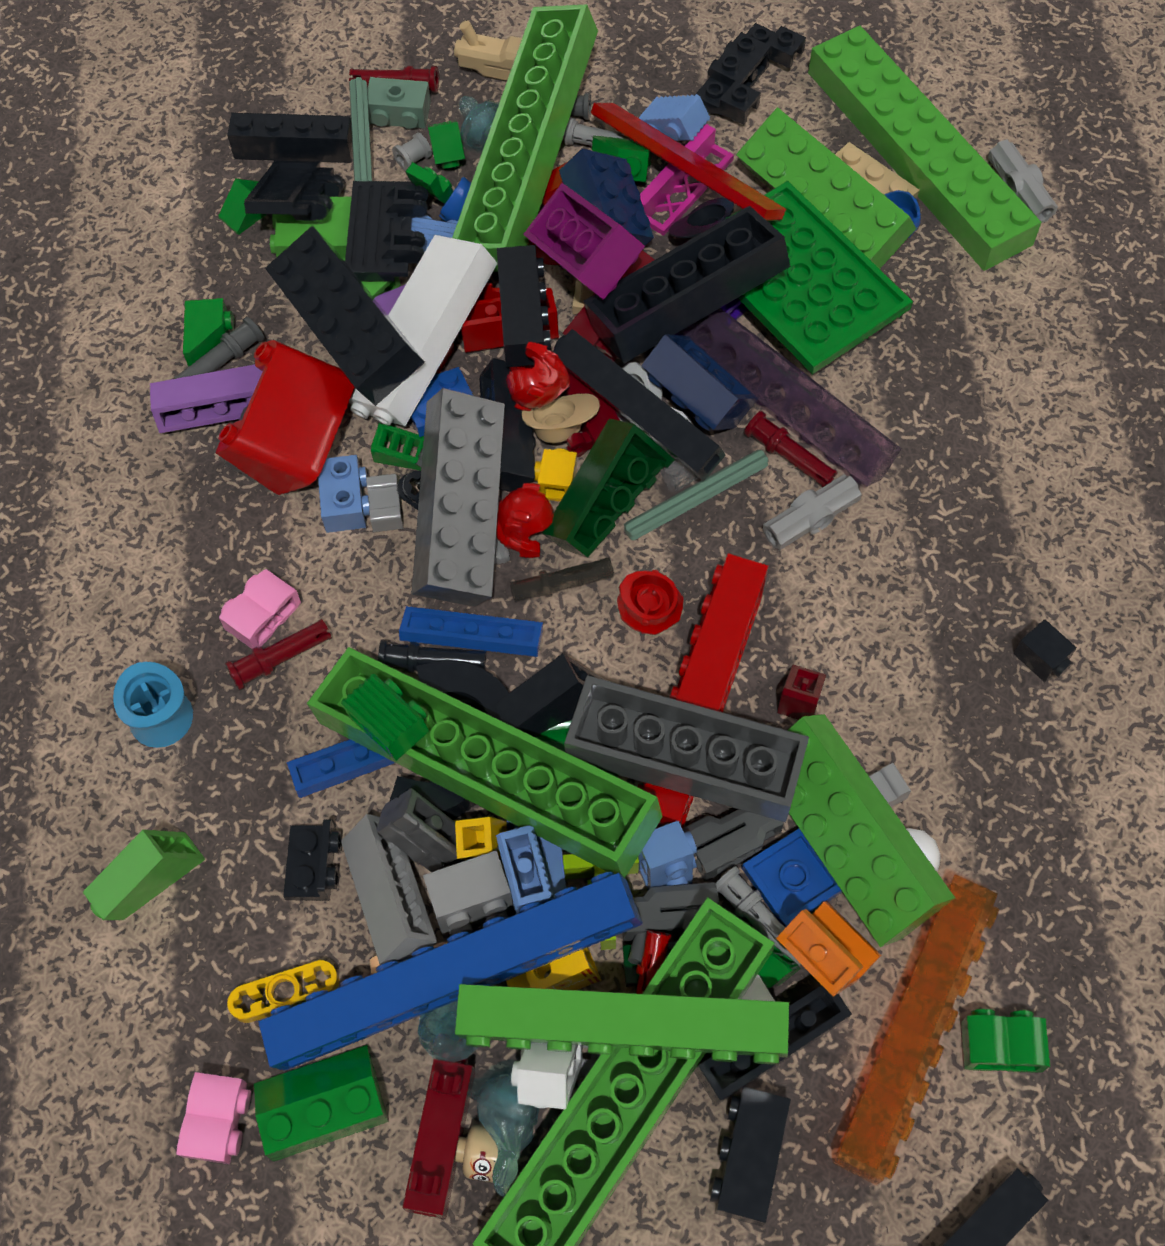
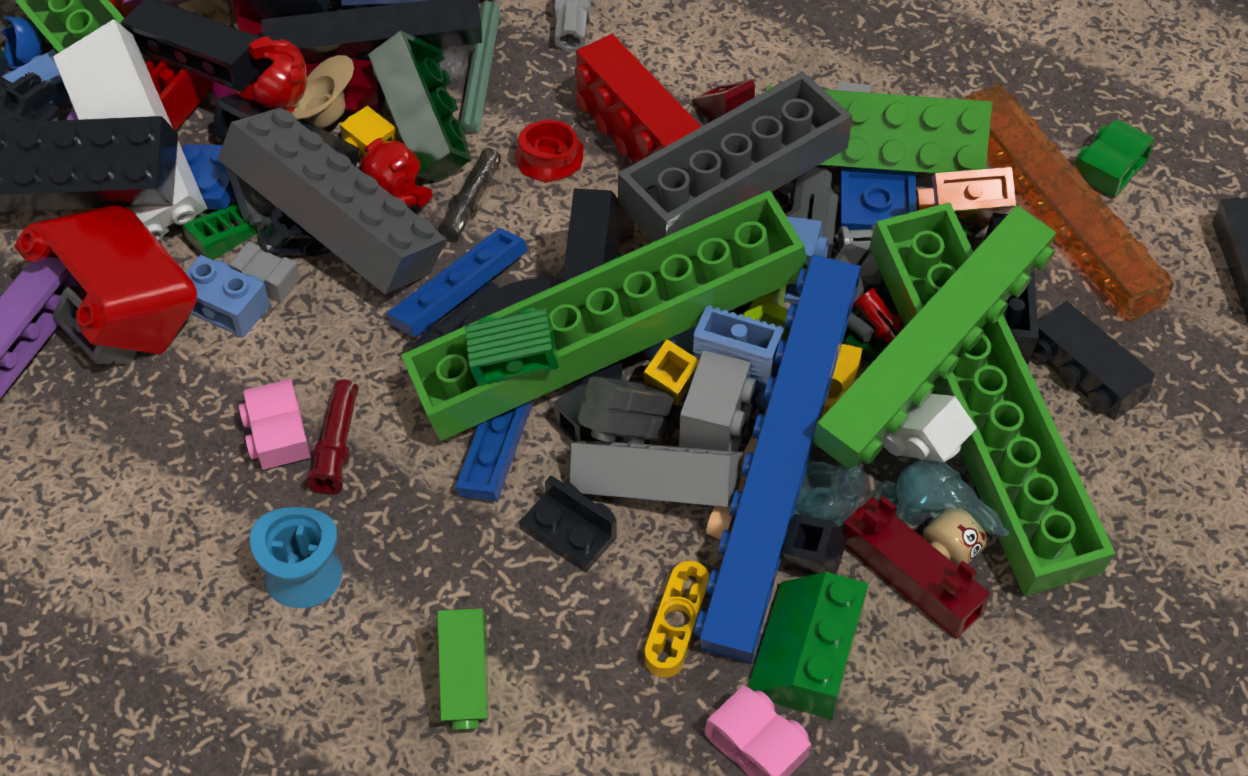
camera: 55 degrees left, 10 degrees down
(399, 1051) = (814, 545): none -> black brick

